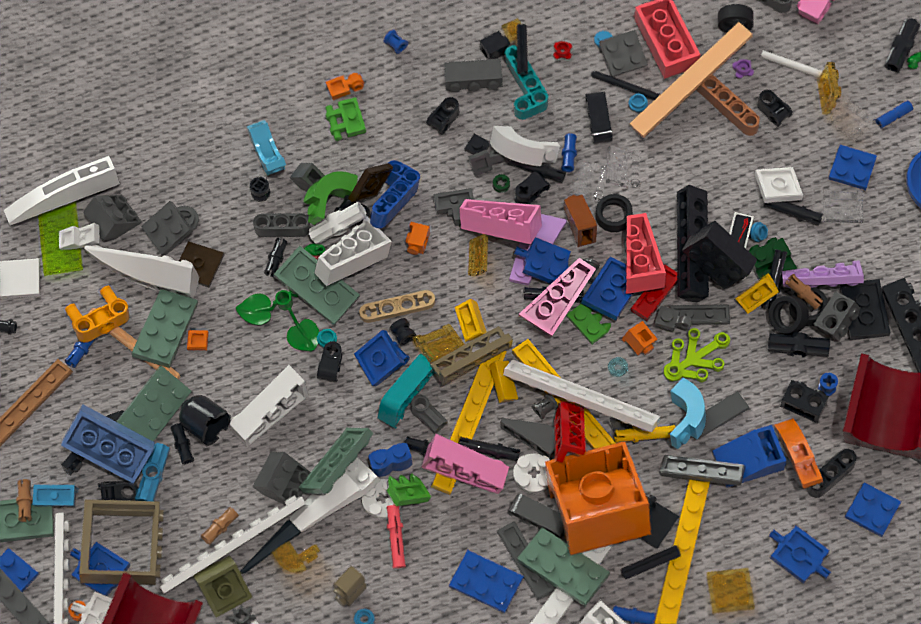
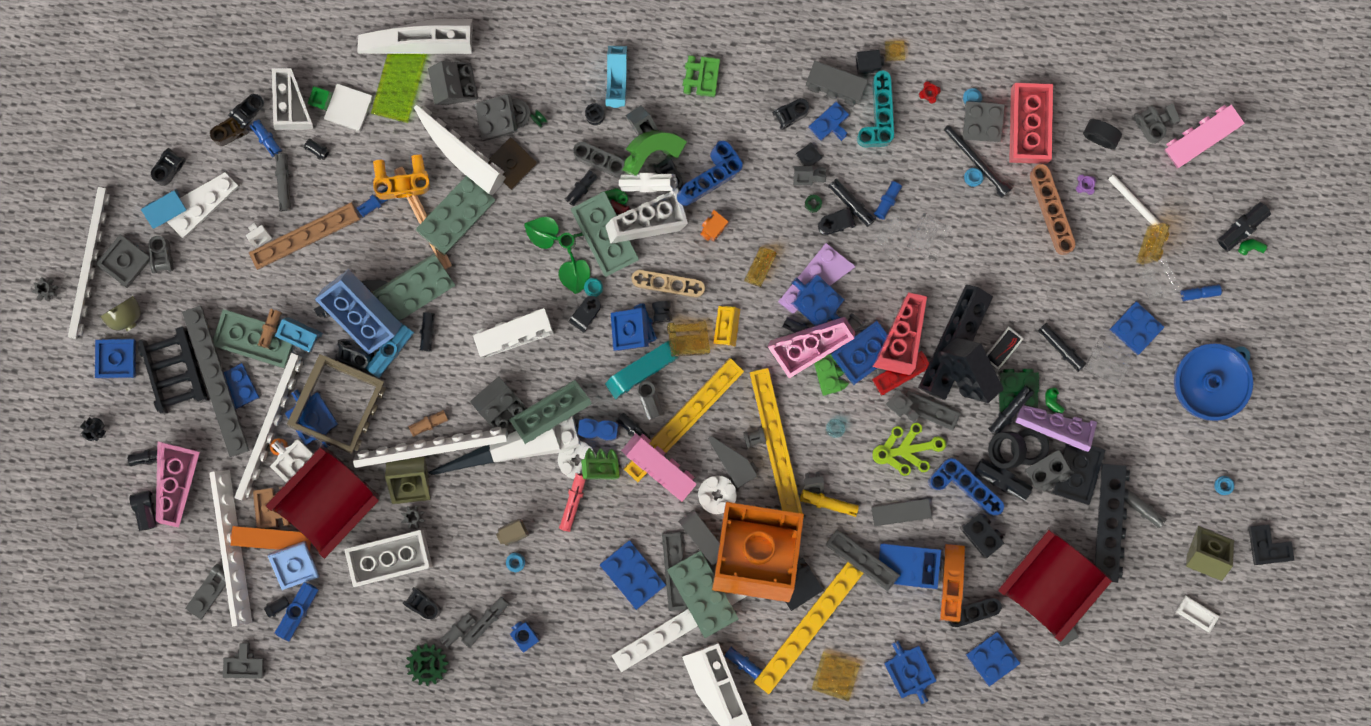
camera: 20 degrees right, 20 degrees up
(78, 237) = (414, 92): white slope -> none
(197, 340) = (480, 238): orange tile -> none
(203, 418) = (452, 319): black cylinder -> none
(208, 214) = (538, 118): none -> dark green bush
(290, 560) = (474, 484): clear yellow brick -> none
(340, 87) = (709, 41): orange plate -> none
(370, 182) = (693, 157): dark brown plate -> none
(395, 41) = (781, 16): blue bush -> none
(451, 202) = (762, 205): dark grey hinge -> none
(474, 358) = (716, 370): dark tan fence -> none
(483, 110) = (830, 122): none -> blue plate
(495, 450) = (693, 461): black pin -> none
(501, 219) = (795, 246): bright pink wedge -> none
(504, 385) = (729, 399): yellow slope -> none
(522, 53) = (891, 80): black axle -> none
(522, 150) = (843, 182): white arch -> none
(564, 427) = (751, 486): red fence -> none
(580, 220) = (866, 273): dark orange slope -> none
(581, 395) = (788, 448): white plate -> none
(599, 117) = (931, 176): black beam -> none
(610, 200) = (914, 279): black tyre -> none
(640, 338) = (871, 407): orange brick -> none
(651, 562) = (780, 623): black axle -> none
(690, 399) = (884, 492): medium azure arch -> none
(691, 80) = (1031, 180): light nougat tile -> none
(757, 293) = (990, 416): yellow slope -> none
(758, 232) = (1020, 355): dark azure plate -> none
(771, 367) = (970, 489): none -> blue beam
(776, 109) = (1094, 239): black piece -> none
(778, 184) = (1061, 317): white tile -> none
(803, 291) = (1030, 436): medium nougat pin -> none
(807, 259) = (1051, 400): none -> green arm
(833, 382) = (1016, 527): blue bush -> none

